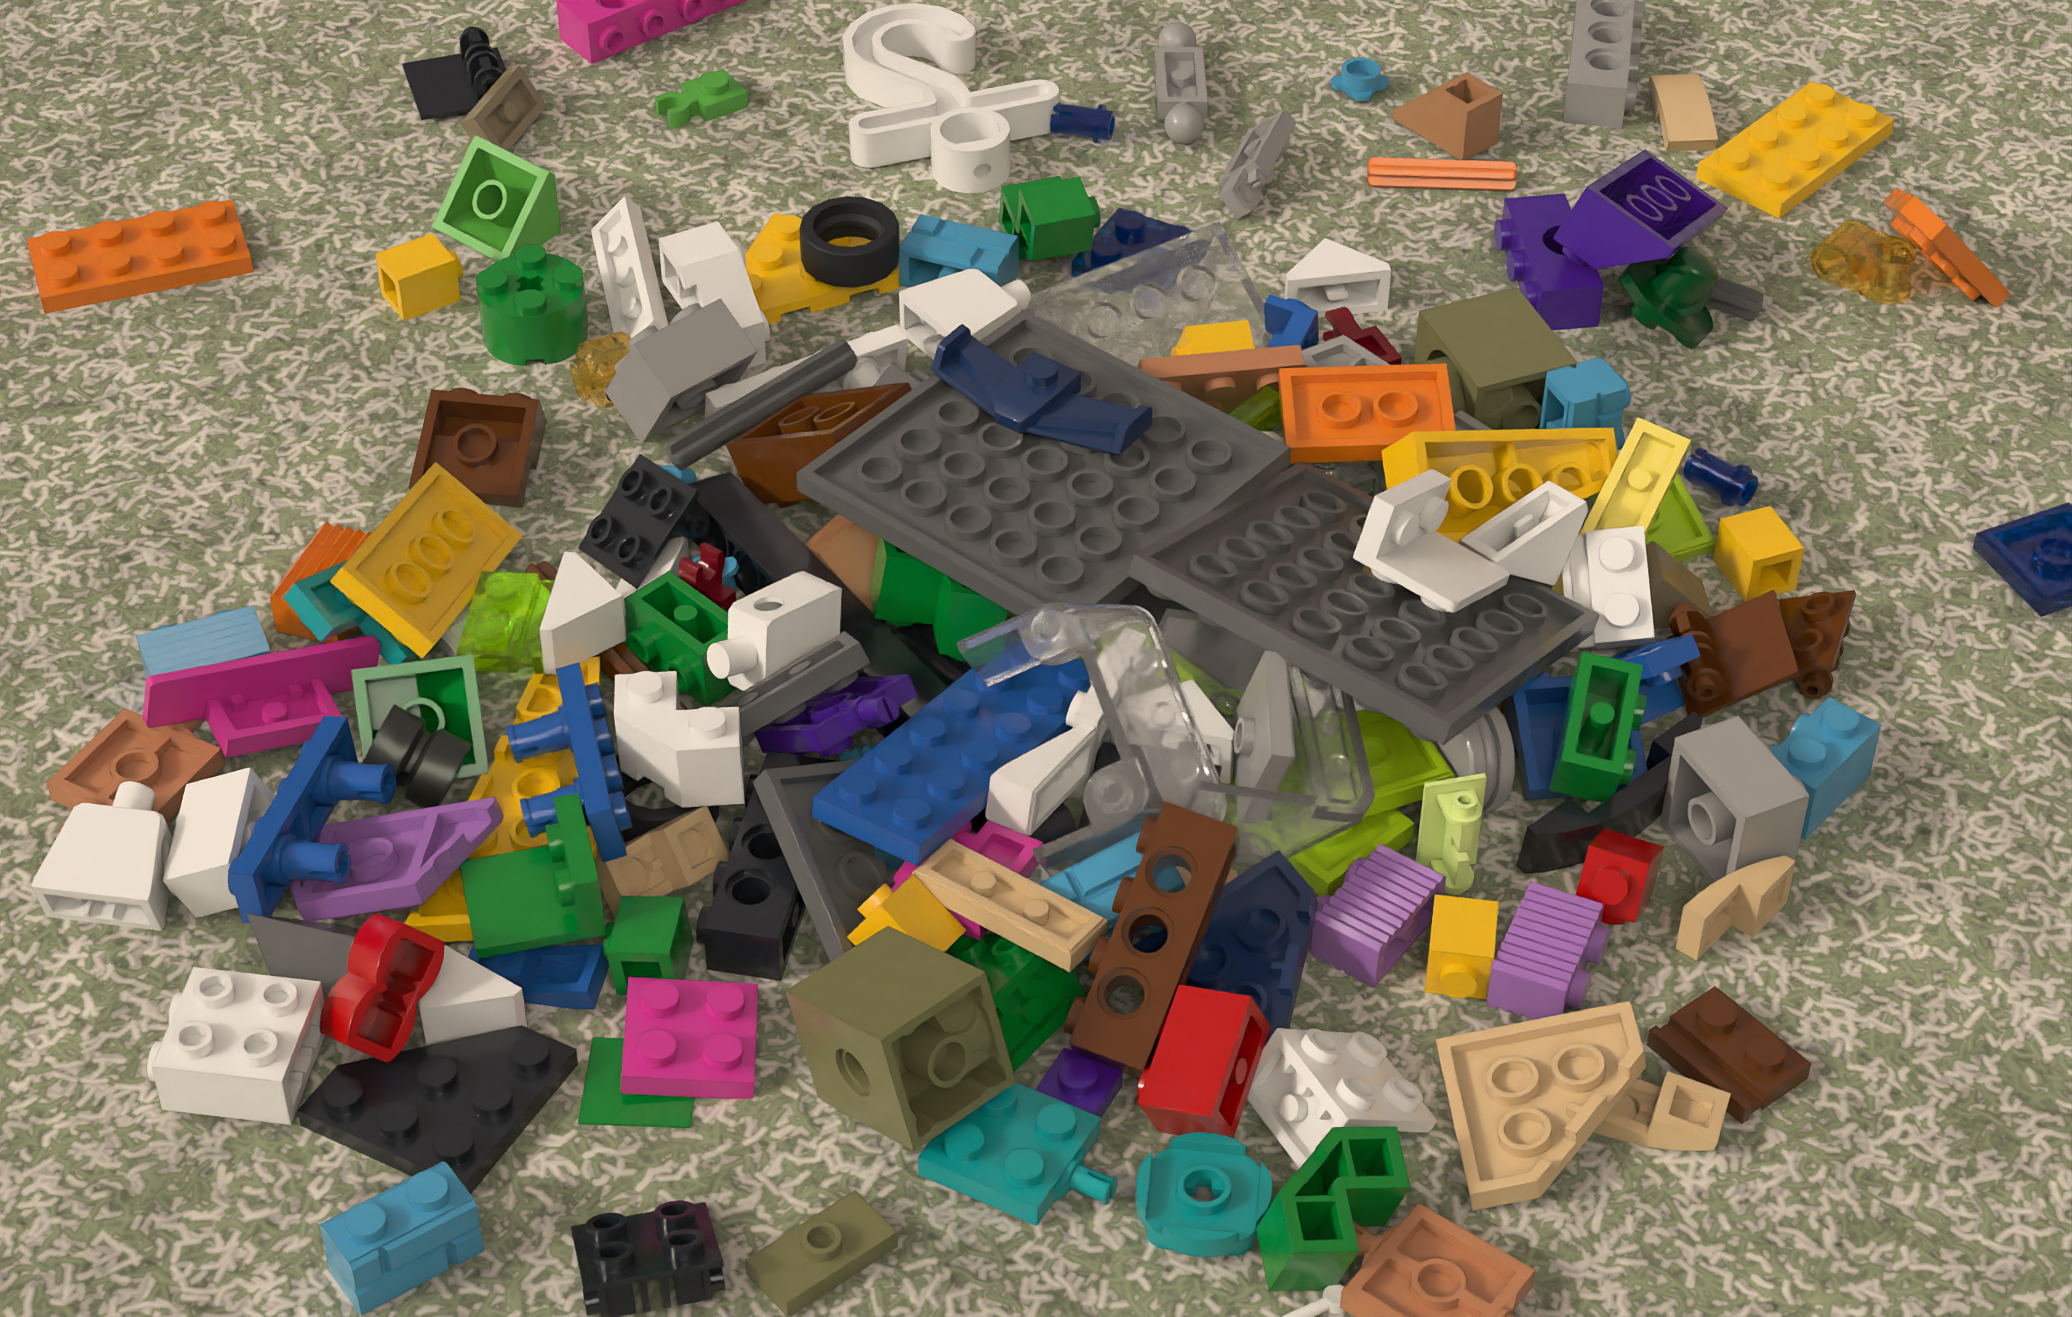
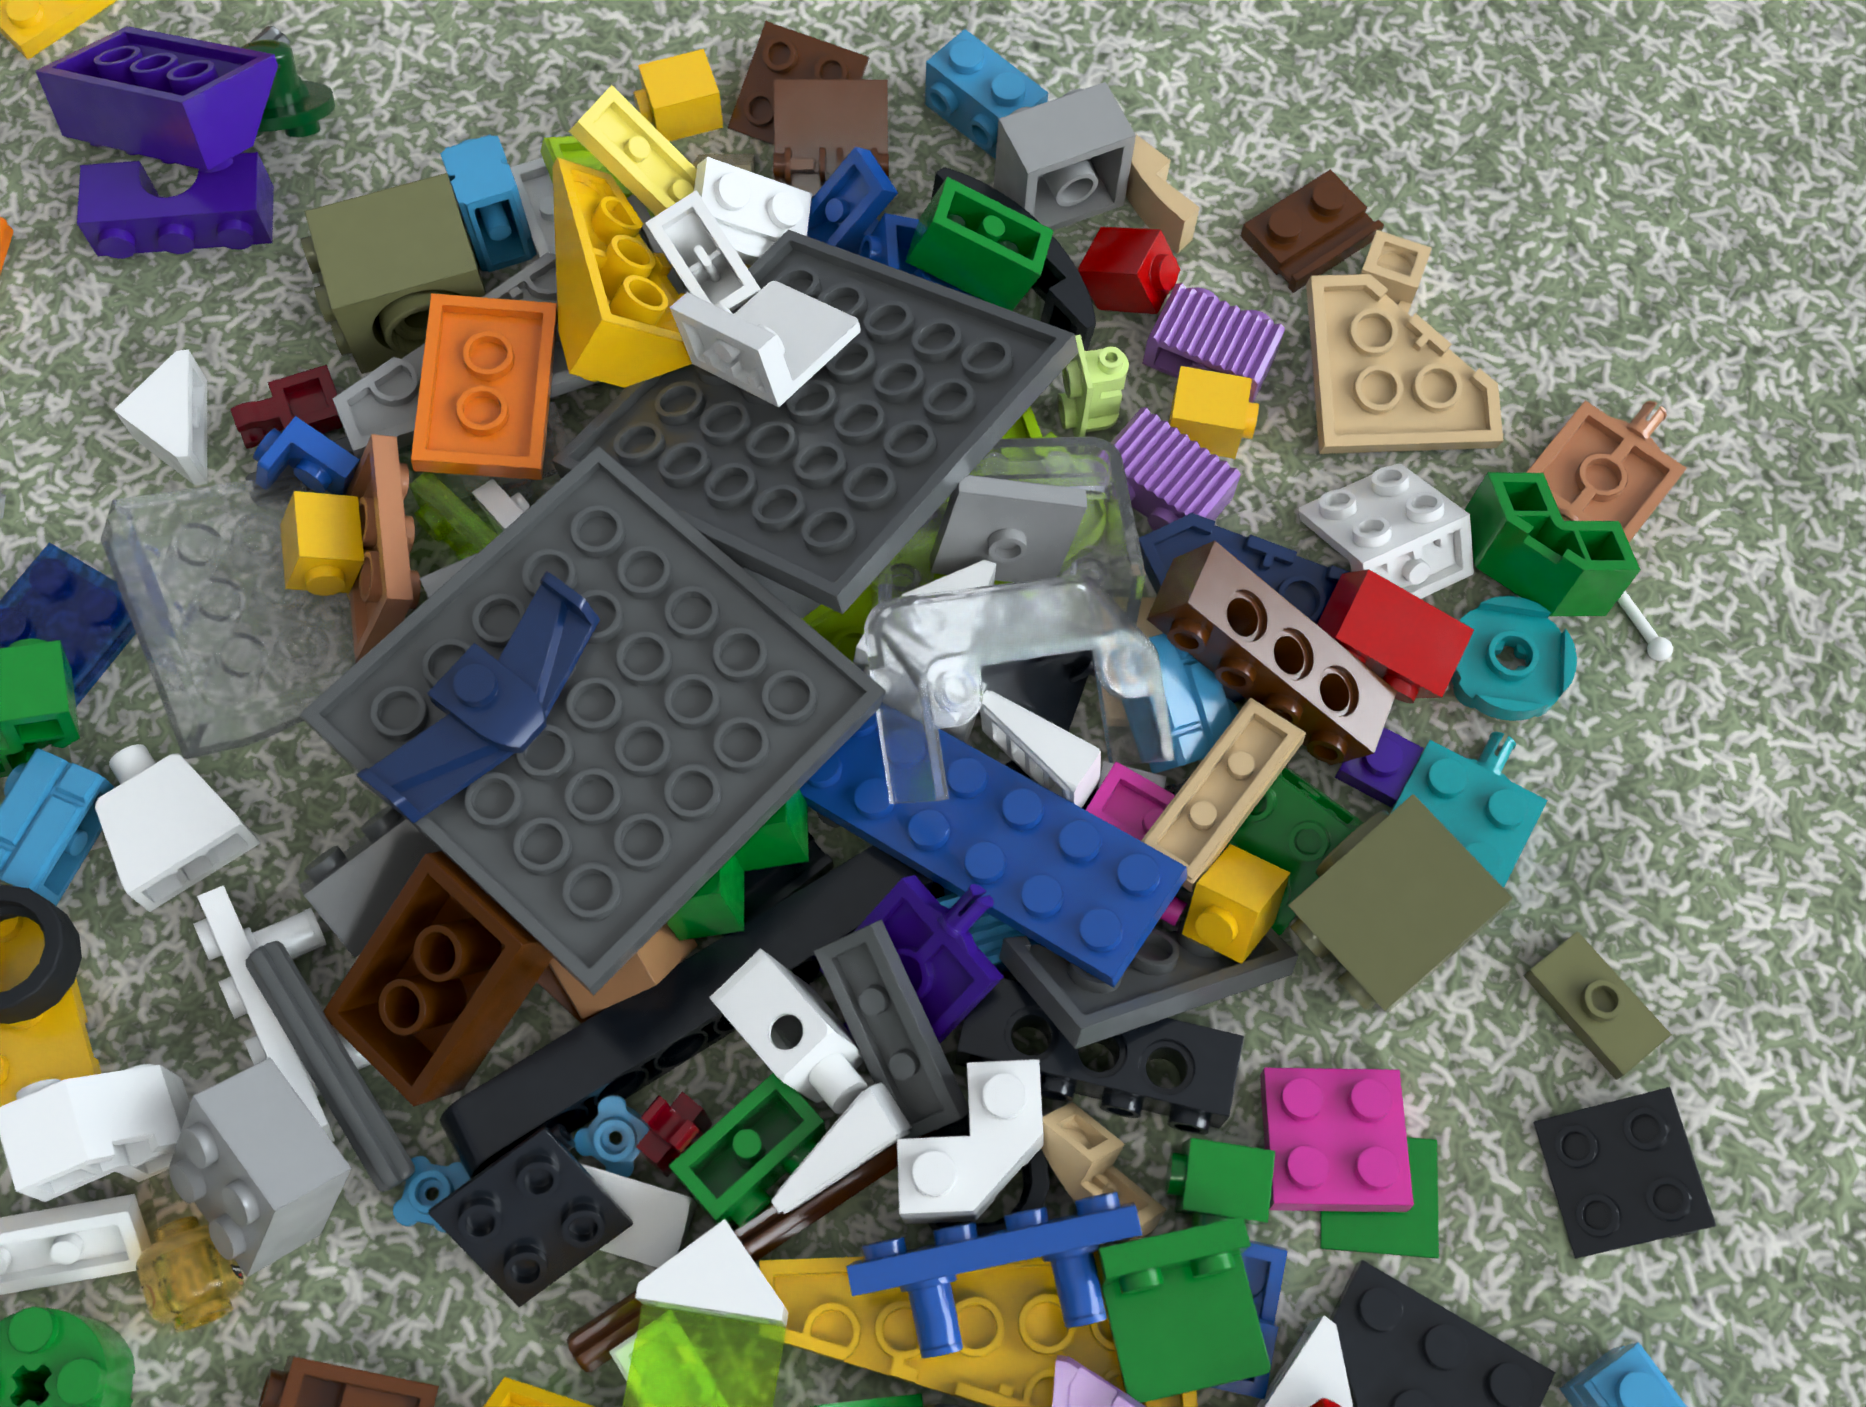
camera: 90 degrees left, 25 degrees up
(699, 667) = (859, 1134): none -> white slope
(1731, 482) = (554, 110): clear blue pin -> none

